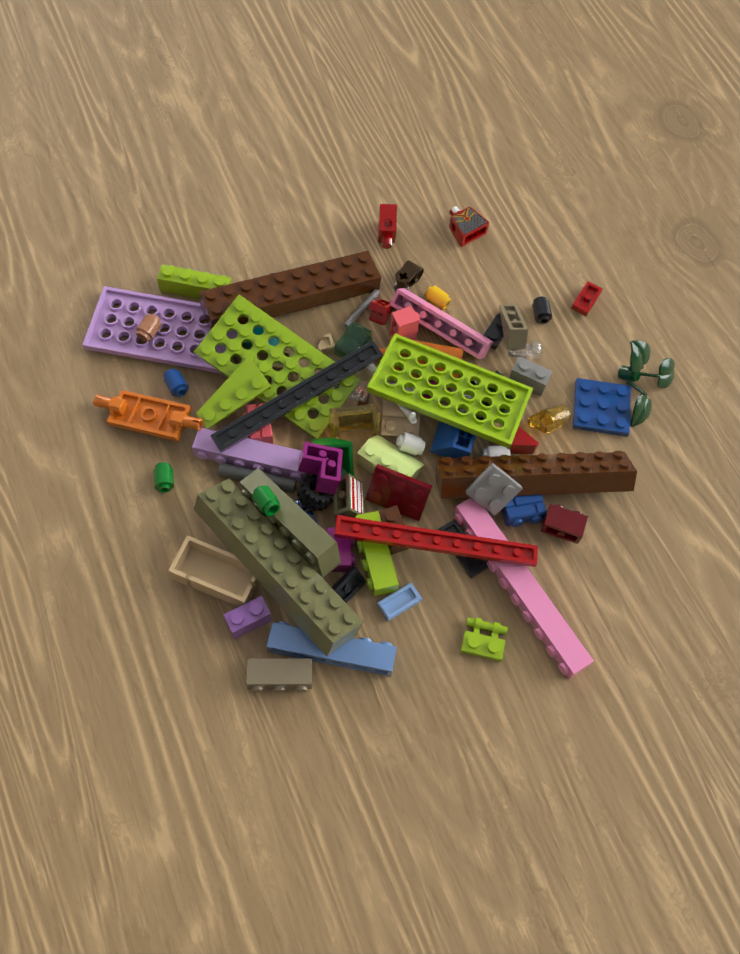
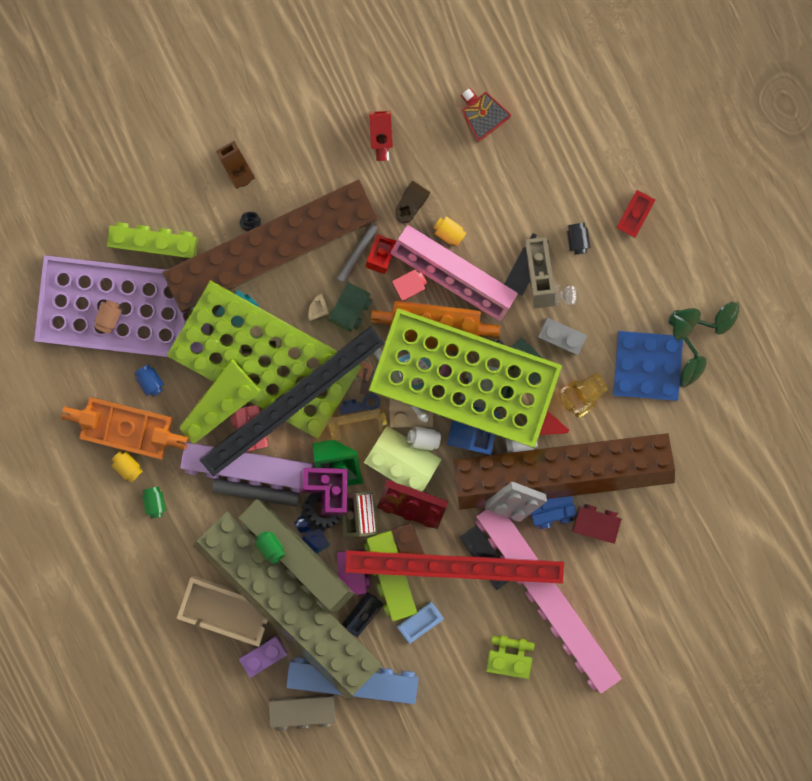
camera: 10 degrees right, 25 degrees up
(144, 446) = (126, 466): none -> yellow brick
(269, 239) = (235, 165): none -> reddish brown brick

